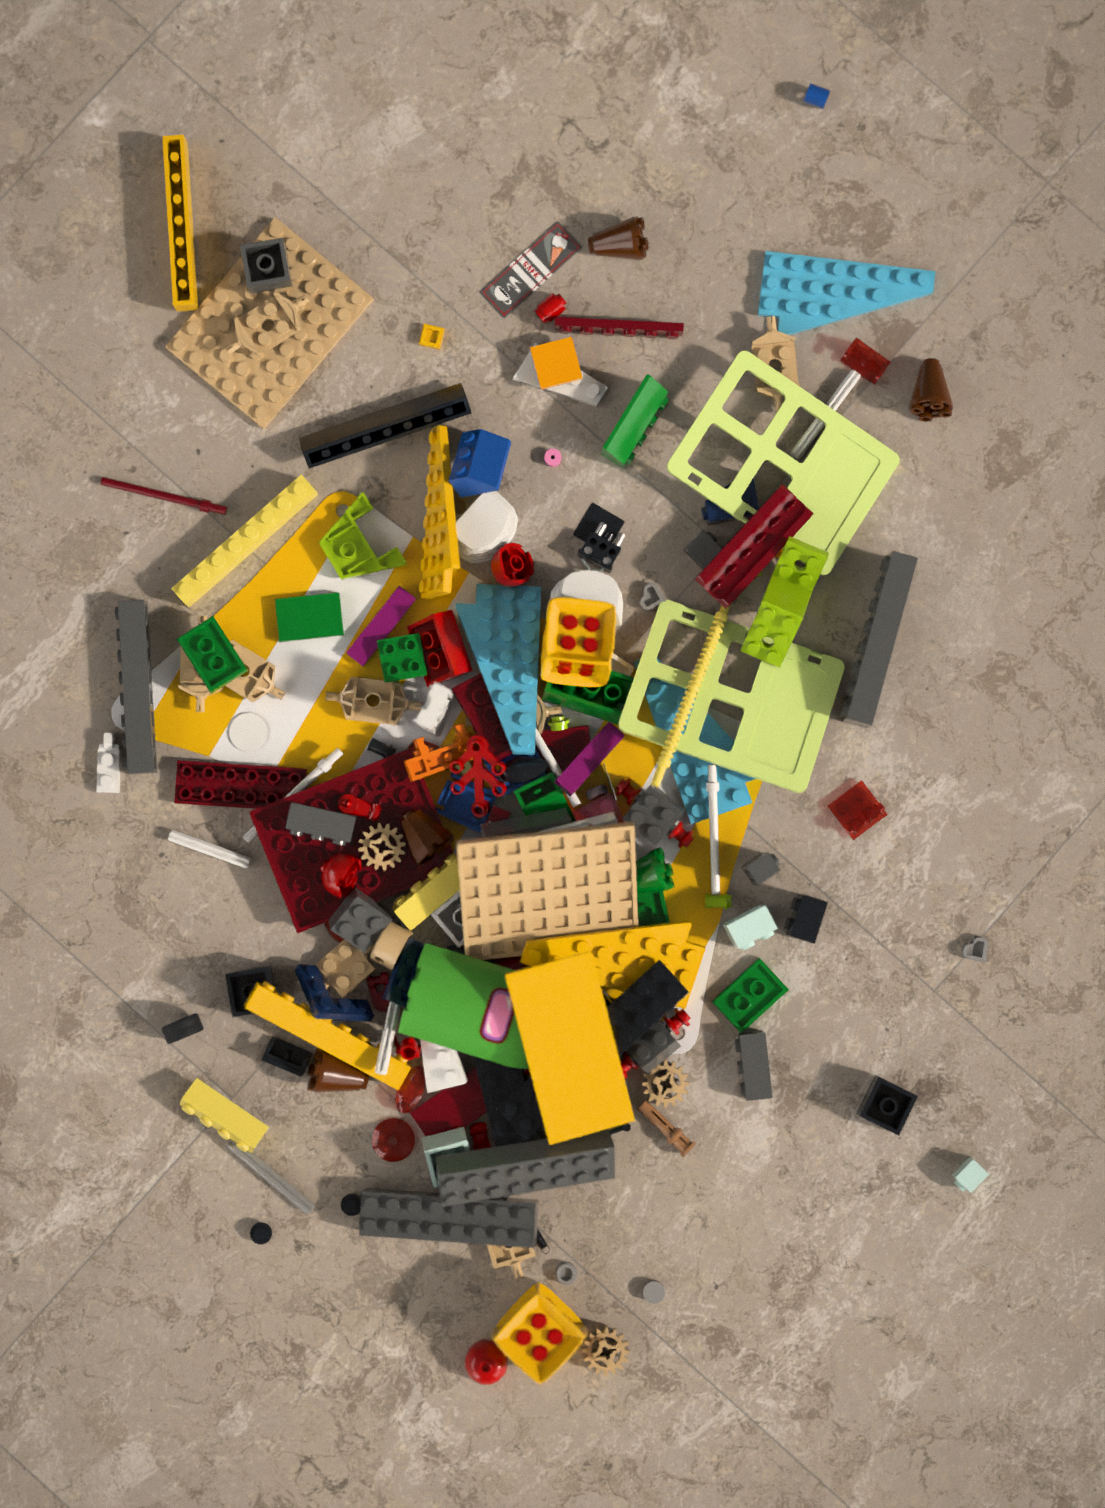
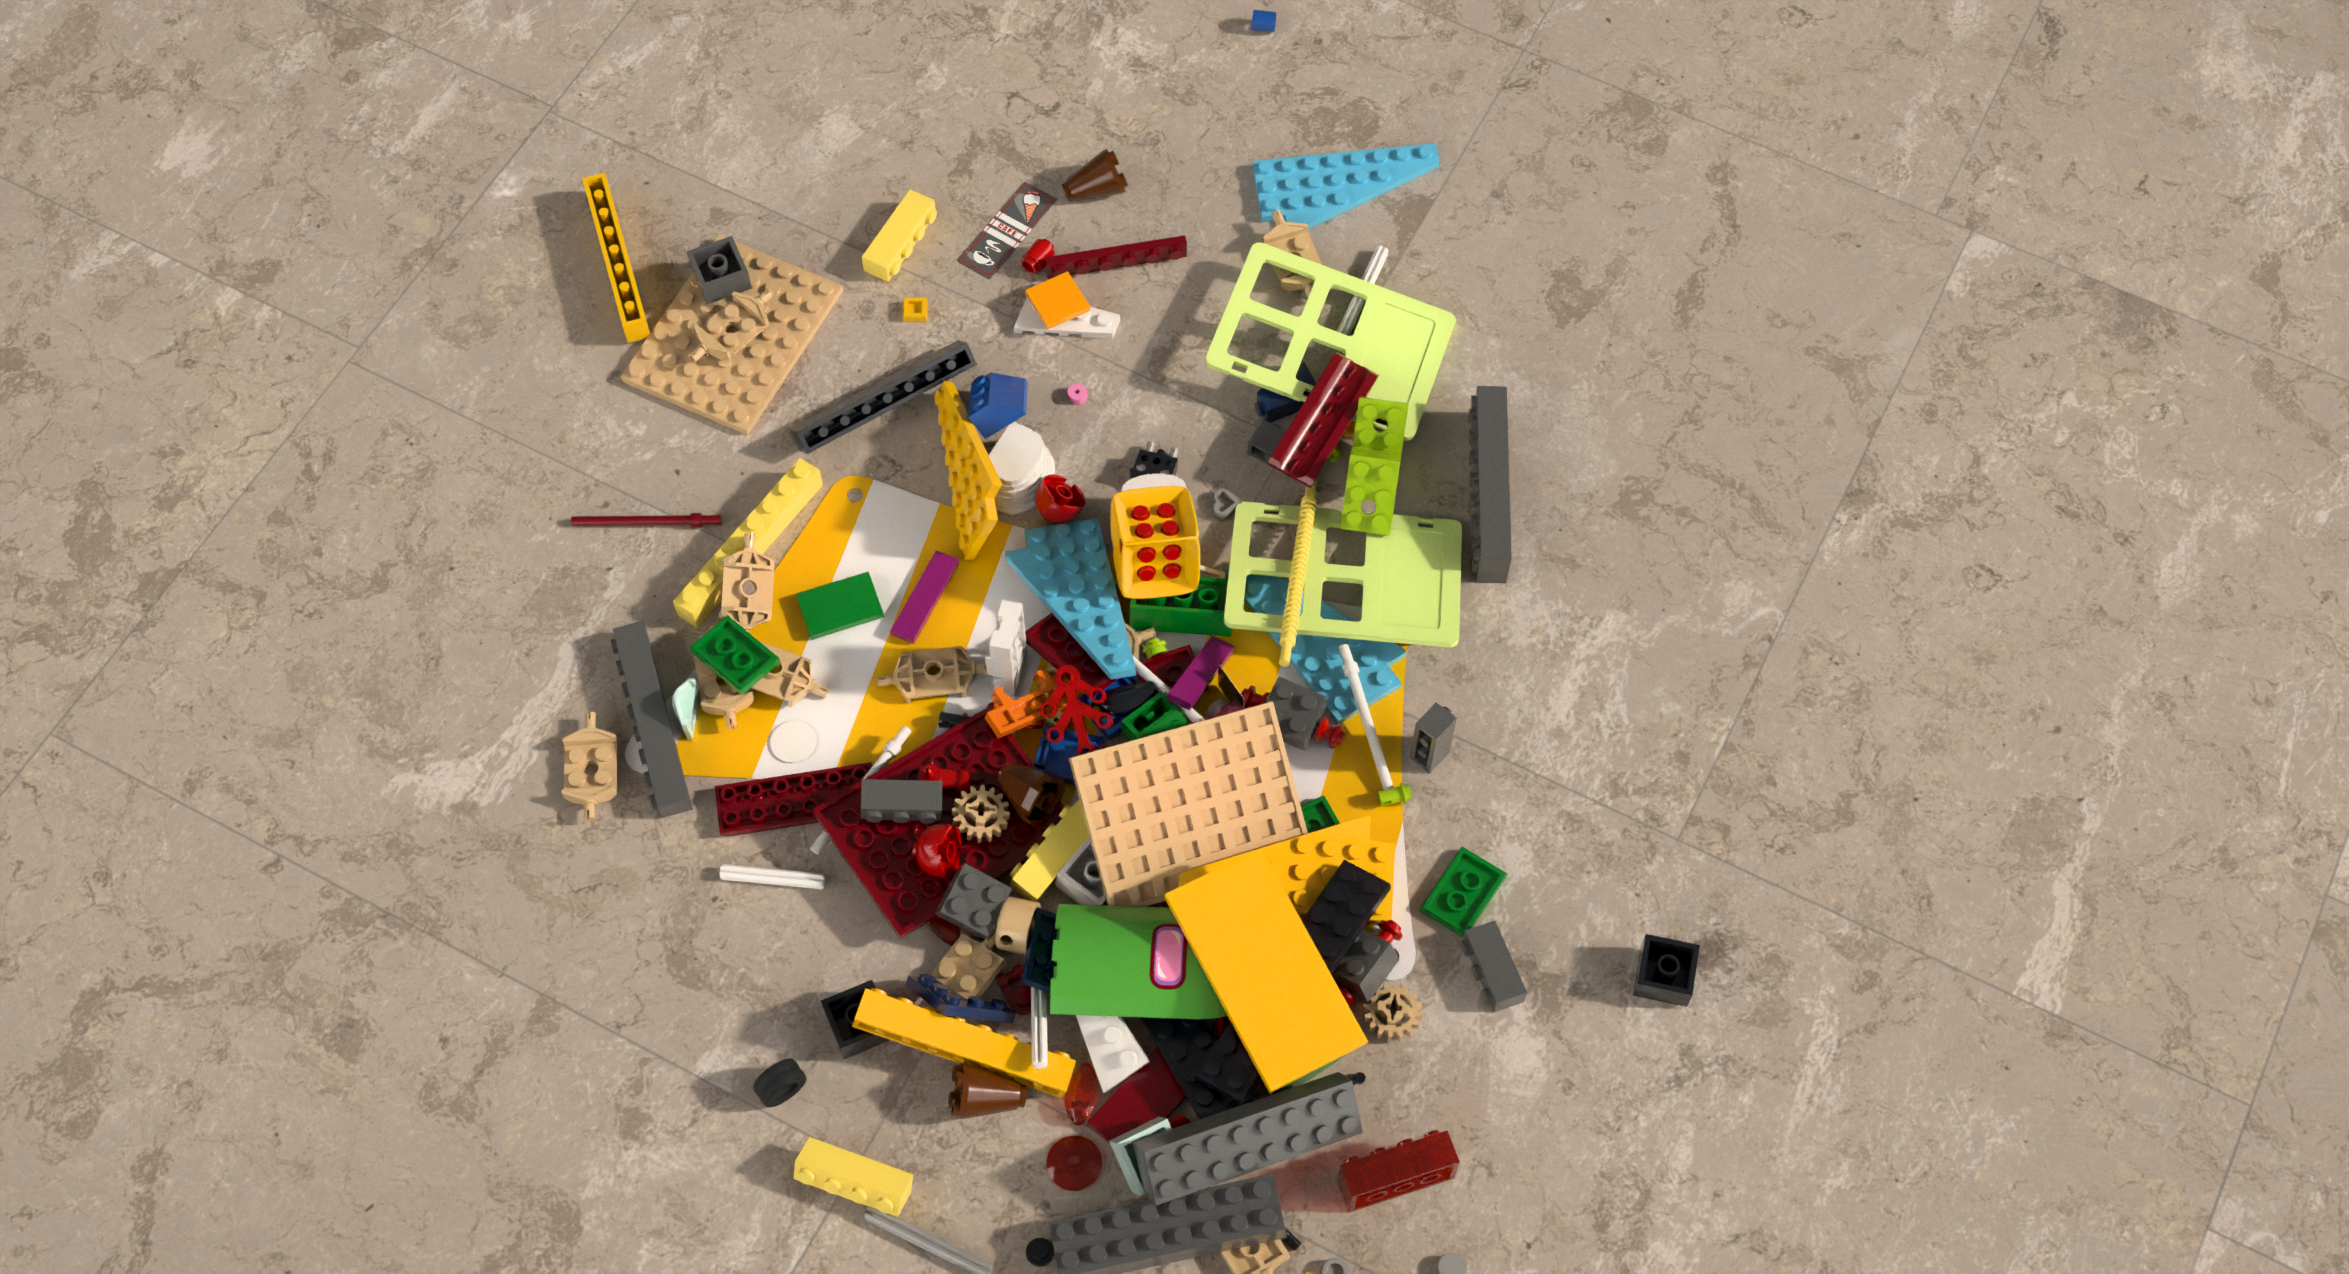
camera: 15 degrees left, 25 degrees down
(77, 701) = (582, 750): none -> tan plate
(108, 765) = (632, 812): white hinge -> none
(165, 687) = (685, 706): none -> light aqua slope
(232, 574) = (750, 567): none -> tan plate
(286, 1056) = (917, 1092): black hinge -> none
(350, 550) = (872, 527): lime wing -> none
(401, 658) = (956, 619): green hinge -> none
(408, 1048) = (1066, 1032): red plant -> none
(433, 257) = (899, 235): none -> light yellow brick
(442, 647) = (987, 587): red slope -> none
(592, 519) = (1138, 440): black sticker -> none
(632, 1214) = (1397, 1170): none -> clear red brick
(635, 421) = (1158, 336): green slope -> none
(653, 872) = (1309, 778): green cone -> none
(673, 1134) = (1420, 1070): medium nougat pin -> none
(749, 927) = (1440, 807): light aqua brick -> none
(805, 918) = (1501, 784): black brick -> none
(857, 810) = (1524, 665): clear red hinge -> none
(865, 361) = (1389, 233): clear red hinge -> none
(931, 393) = (1469, 248): reddish brown cone -> none
(969, 1175) = (1793, 1030): light aqua brick -> none
(976, 949) = (1710, 782): light grey tile -> none

